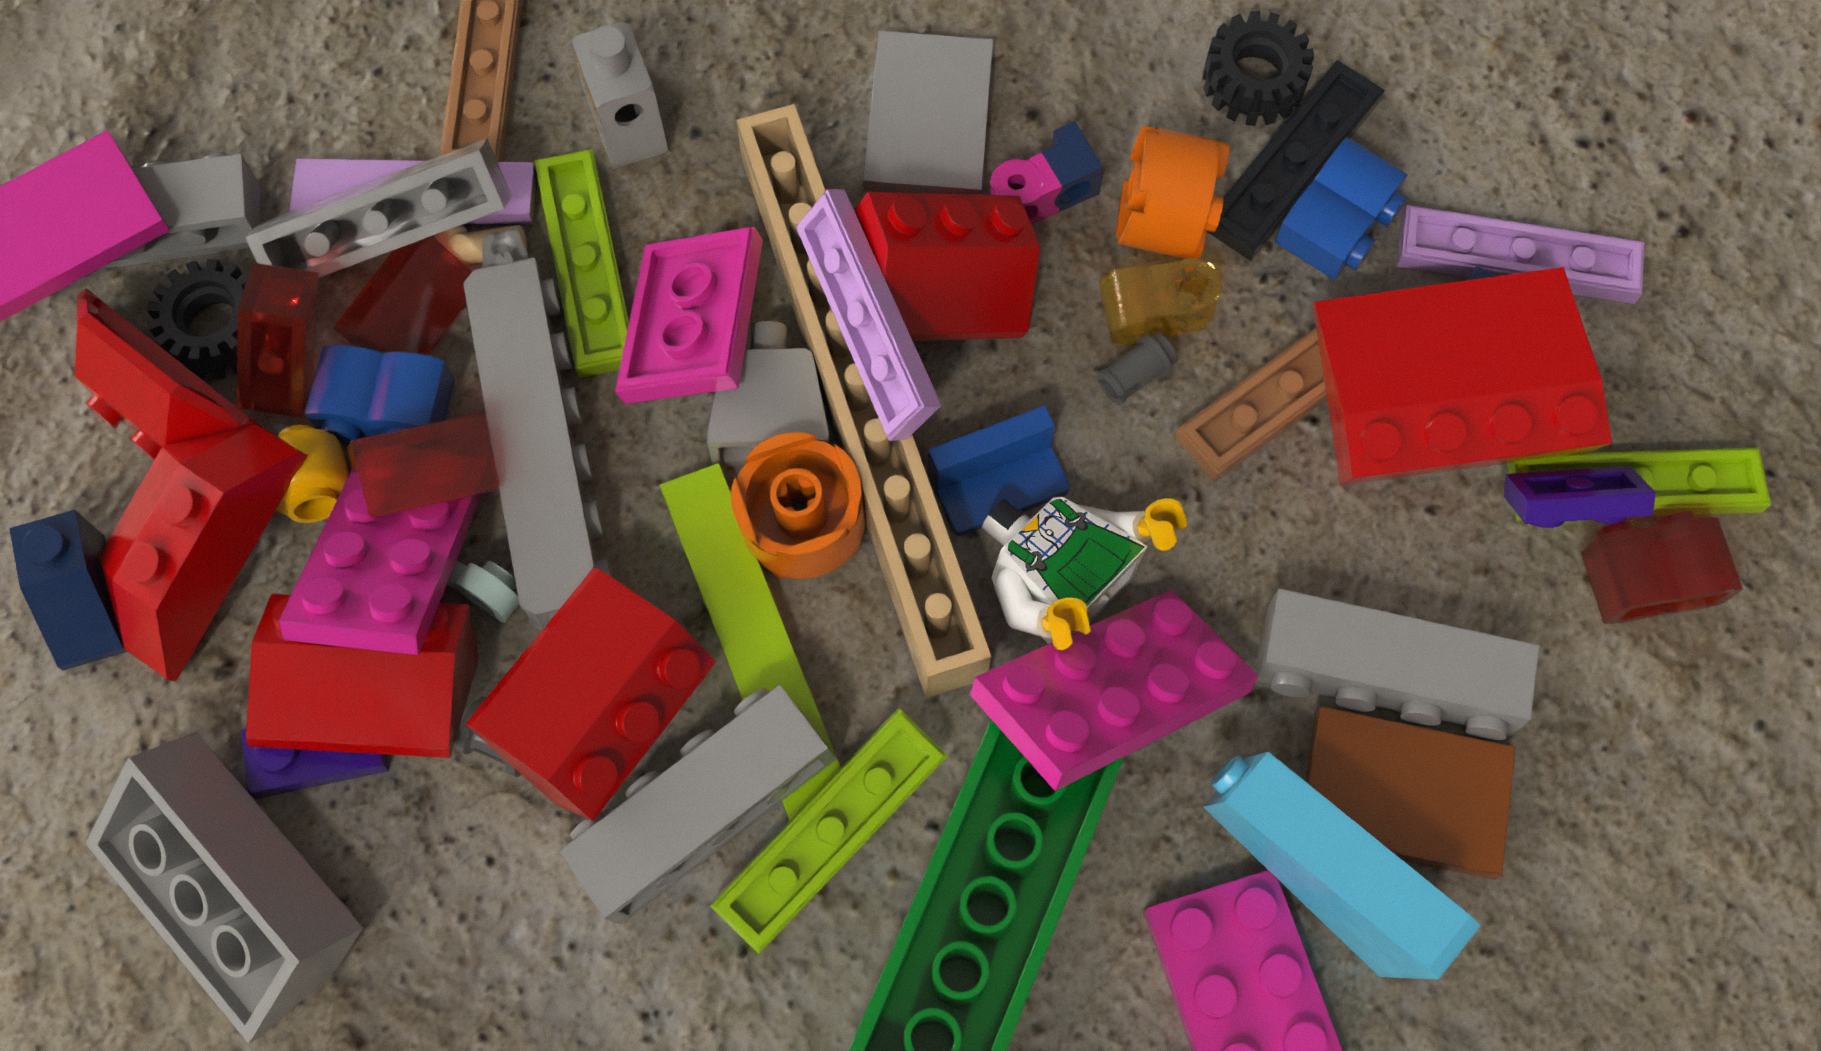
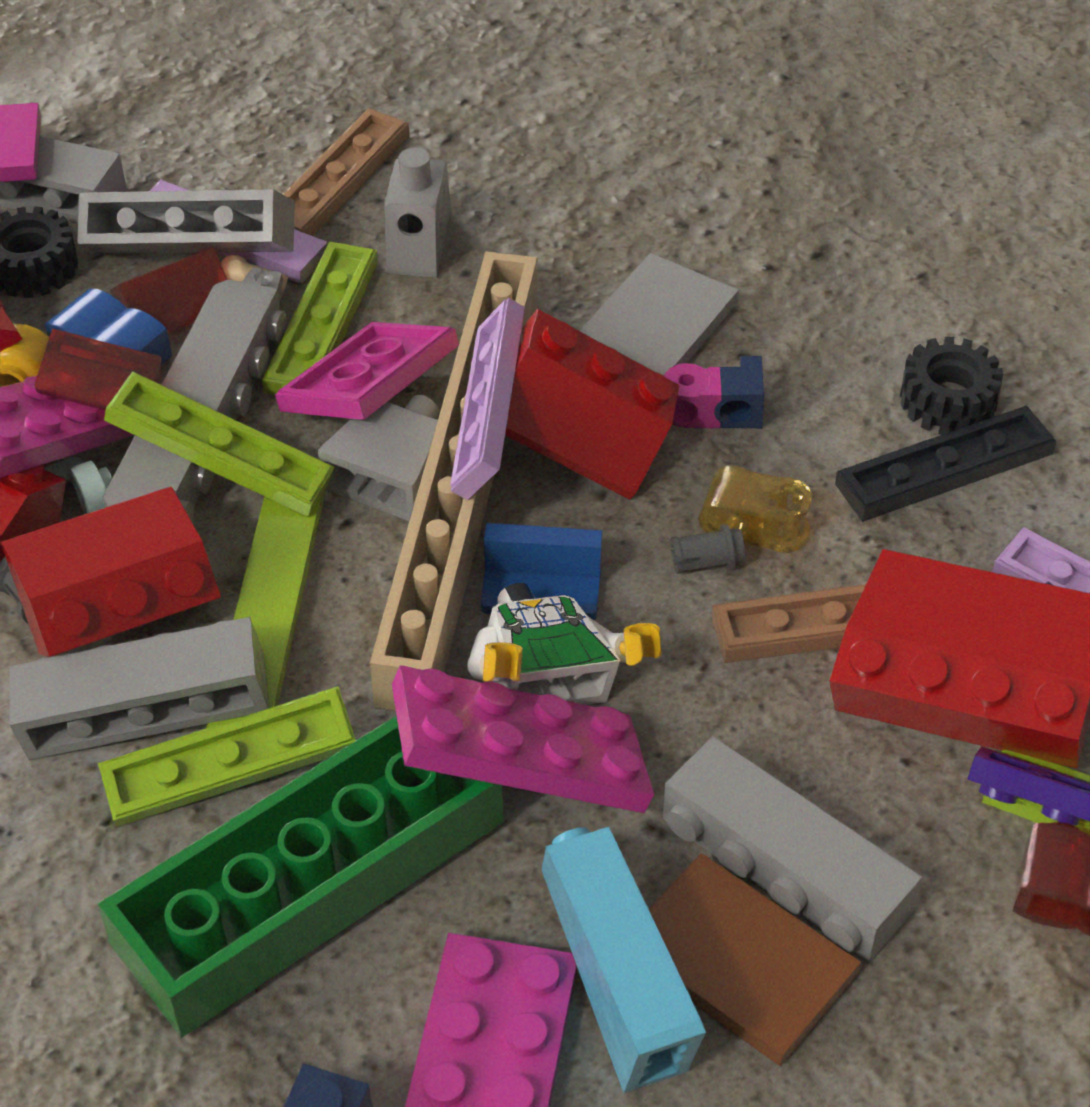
camera: 30 degrees right, 20 degrees down
(276, 339) = (55, 262): clear red brick -> none
(599, 483) = (219, 443): none -> lime tile
(790, 471) = (356, 522): orange brick -> none
(1171, 193) = (808, 429): orange brick -> none
(1341, 209) = (959, 505): blue brick -> none

